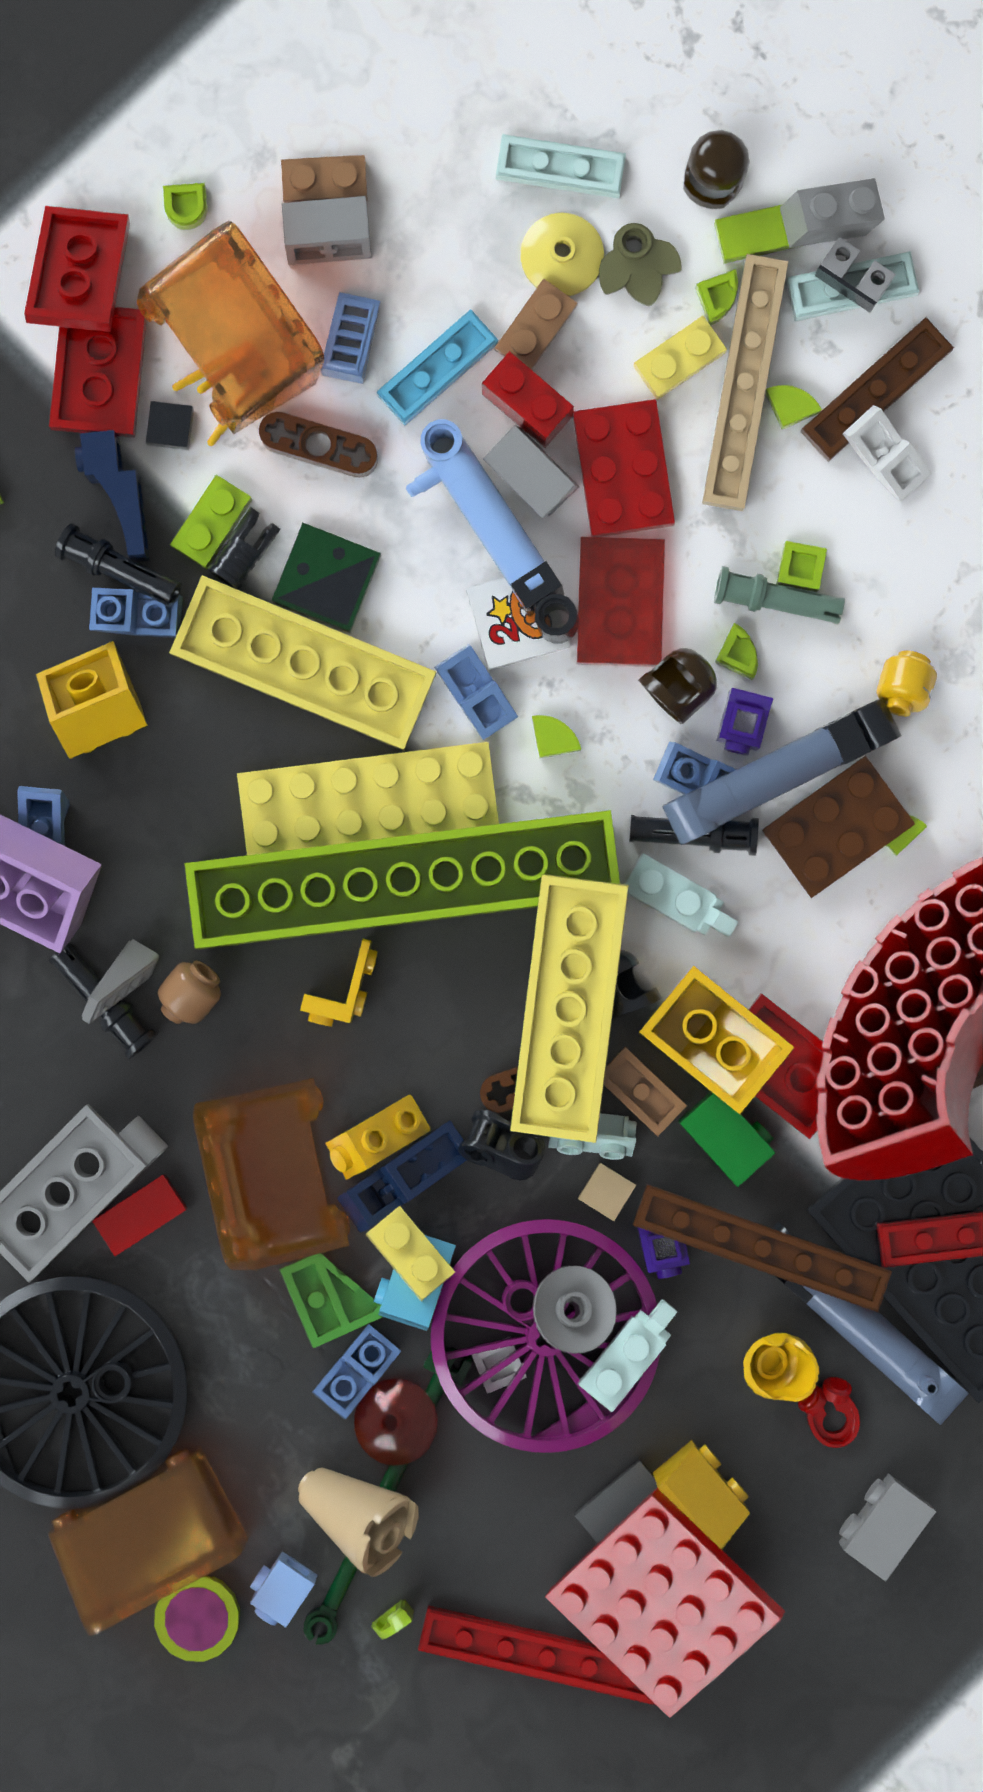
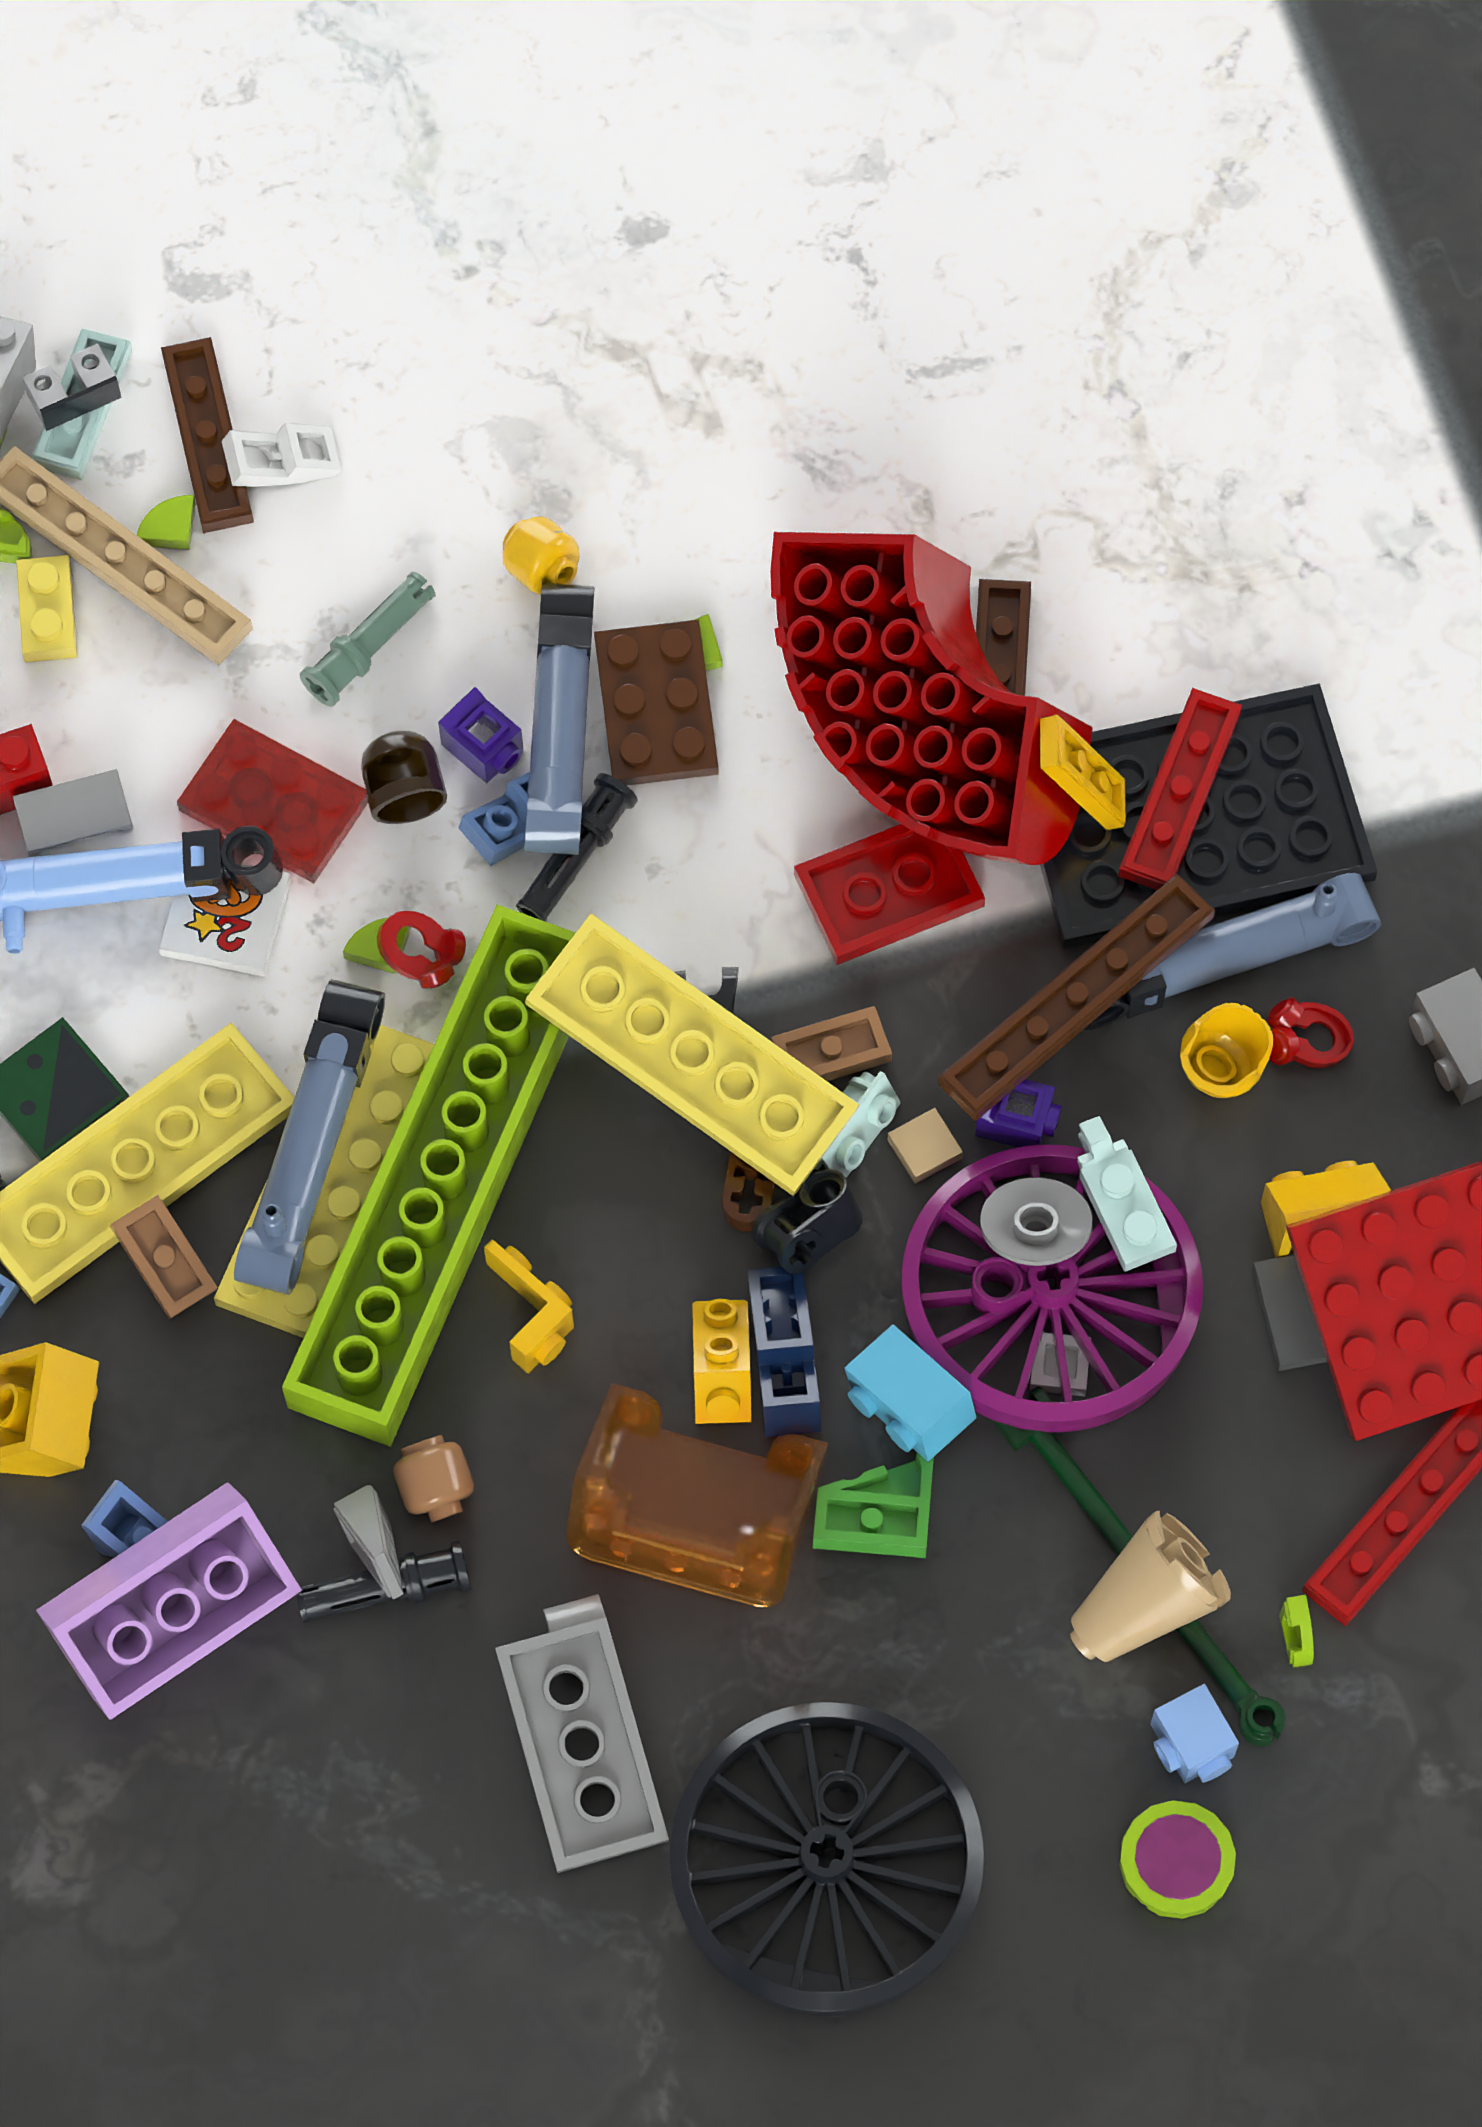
camera: 60 degrees left, 20 degrees down
(139, 1214) = (661, 1676): red tile -> none
(147, 1542) = (1051, 1861): clear orange windscreen -> none
(244, 724) = (163, 1257): none -> medium nougat plate
(356, 1371) = (981, 1524): medium blue slope -> none
(377, 776) = (334, 1066): none -> sand blue piece
(410, 1253) = (873, 1371): light yellow plate -> none
(415, 1420) = (1087, 1525): clear red dish -> none
(476, 691) = (275, 1000): medium blue slope -> none
(576, 784) = (447, 944): none -> red piece
(623, 468) = (130, 724): red plate -> none
(678, 897) = (646, 898): light aqua hinge -> none
(716, 1040) = (815, 930): yellow slope -> none
(728, 1138) = (933, 982): green brick -> none
(739, 653) = (405, 709): lime tile -> none
(801, 566) = (348, 599): lime tile -> none
(926, 1171) = (1082, 772): none -> yellow tile

